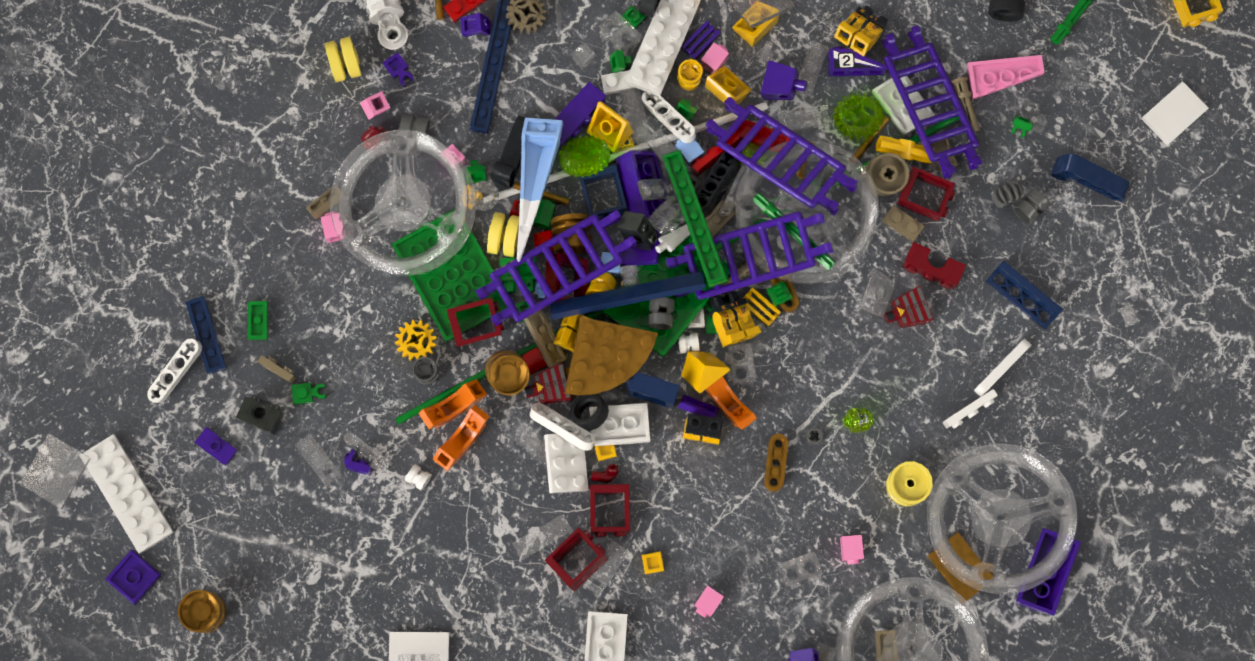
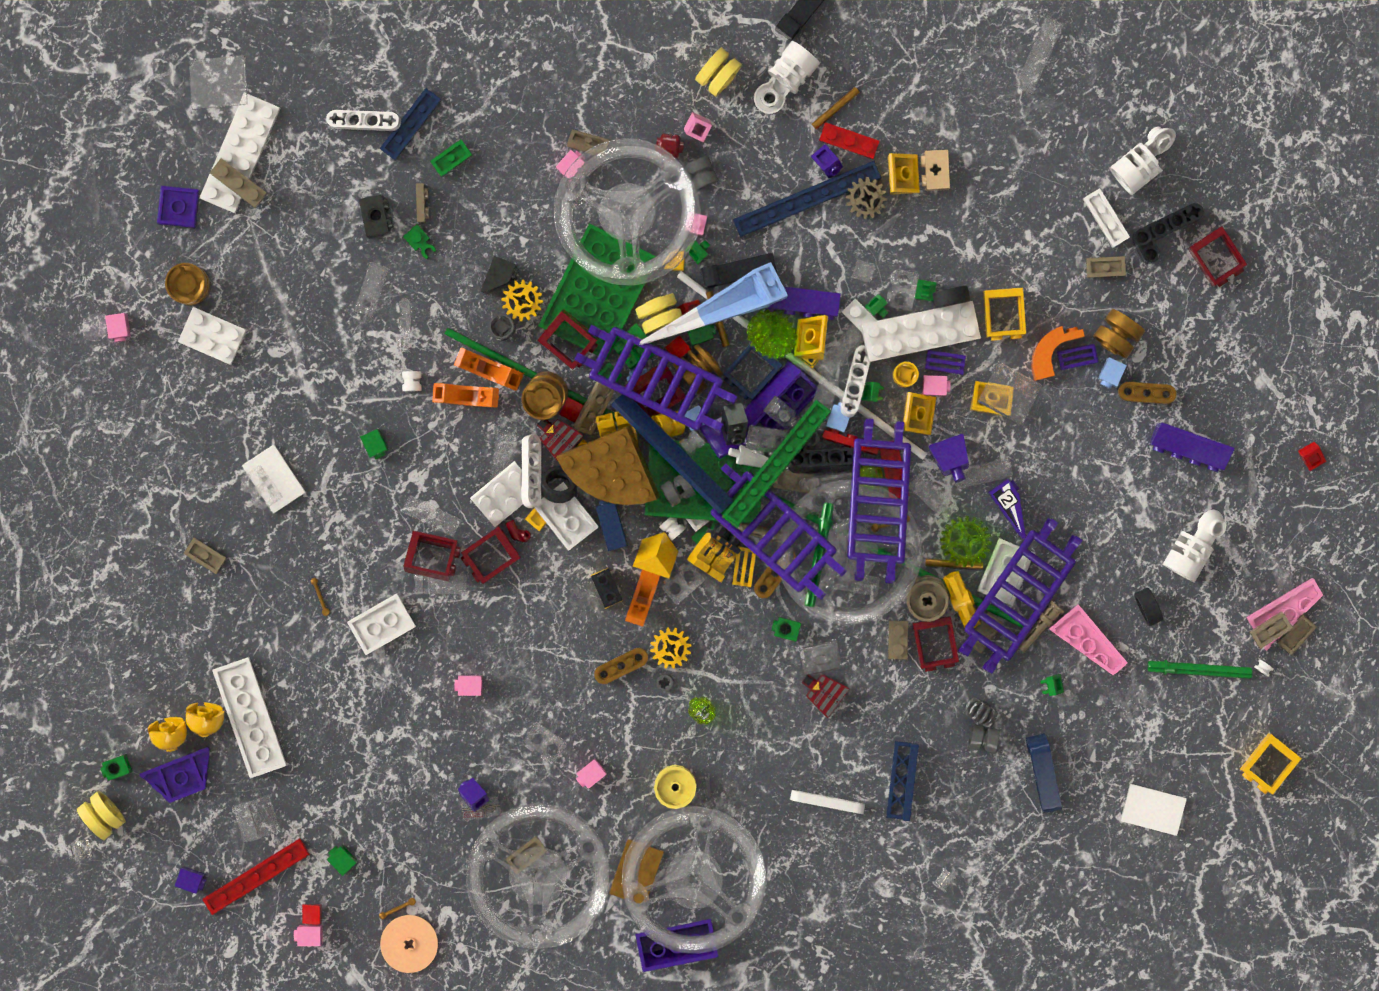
camera: 60 degrees right, 10 degrees up
(149, 510) = (238, 183): none -> dark tan plate
(216, 446) = (326, 197): dark purple plate -> none
(261, 622) = (212, 335): none -> white plate
(360, 466) = (388, 327): dark purple bracket -> none
(381, 344) = (499, 275): none -> pearl dark grey slope
(396, 67) = (745, 120): dark purple plate -> none
(449, 544) = (374, 444): none -> green brick
(493, 197) = (685, 281): clear gear -> none
(652, 562) = (471, 619): yellow tile -> none
(697, 407) = (623, 572): dark purple tile -> none
(766, 54) = (968, 428): clear plate -> none
(779, 294) = (763, 576): green tile -> none
(779, 410) = (664, 636): none -> yellow gear
(839, 298) = (795, 627): none -> green brick
(862, 28) = (1050, 496): hips -> none
(917, 262) = (877, 706): dark red arch -> none
(970, 410) = (773, 798): white plate -> none

